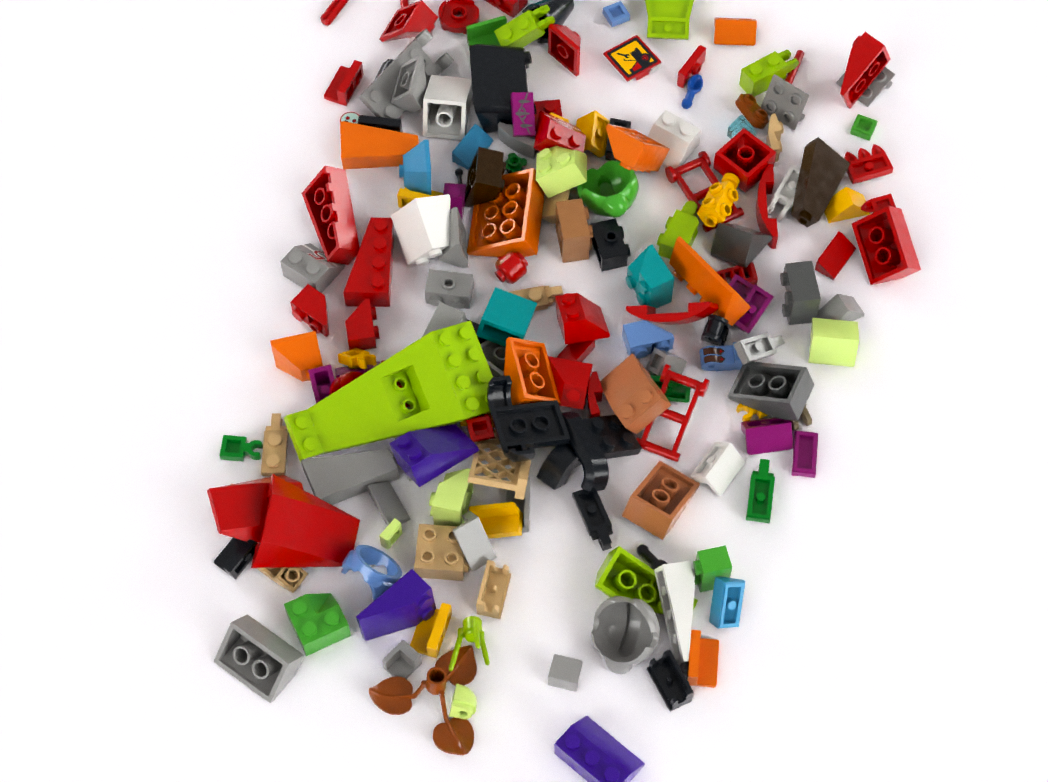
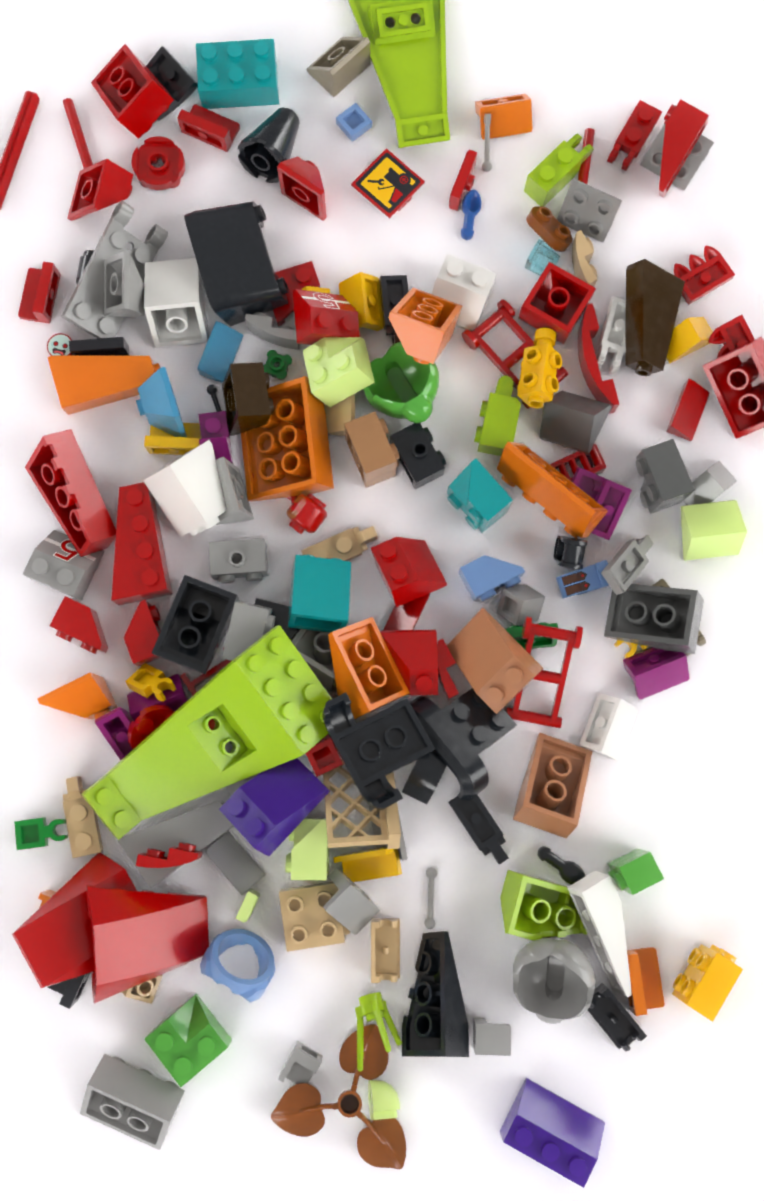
camera: 15 degrees left, 20 degrees up
(346, 477) = (177, 856): none -> red slope
(398, 608) = (288, 1002): dark purple slope -> none
(403, 319) = (195, 624): none -> black slope
(431, 633) = (323, 1014): yellow panel -> none
(484, 31) = (203, 187): bright green panel -> none
(523, 114) = (273, 301): magenta tile -> none
(524, 28) = (246, 175): lime hinge -> none
(525, 649) = (437, 1012): none -> black wedge
(546, 546) = (431, 873): none -> light grey hinge
(695, 312) = (484, 542): red slope -> none
(713, 62) = (487, 166): none -> light grey hinge
(726, 602) = (658, 908): dark azure slope -> none
(753, 662) = (707, 980): none -> yellow brick
(760, 494) = (666, 750): green hinge -> none
(804, 454) = (704, 684): magenta tile -> none
(833, 62) = (635, 133): none -> red hinge
(863, 127) = (686, 221): bright green tile -> none

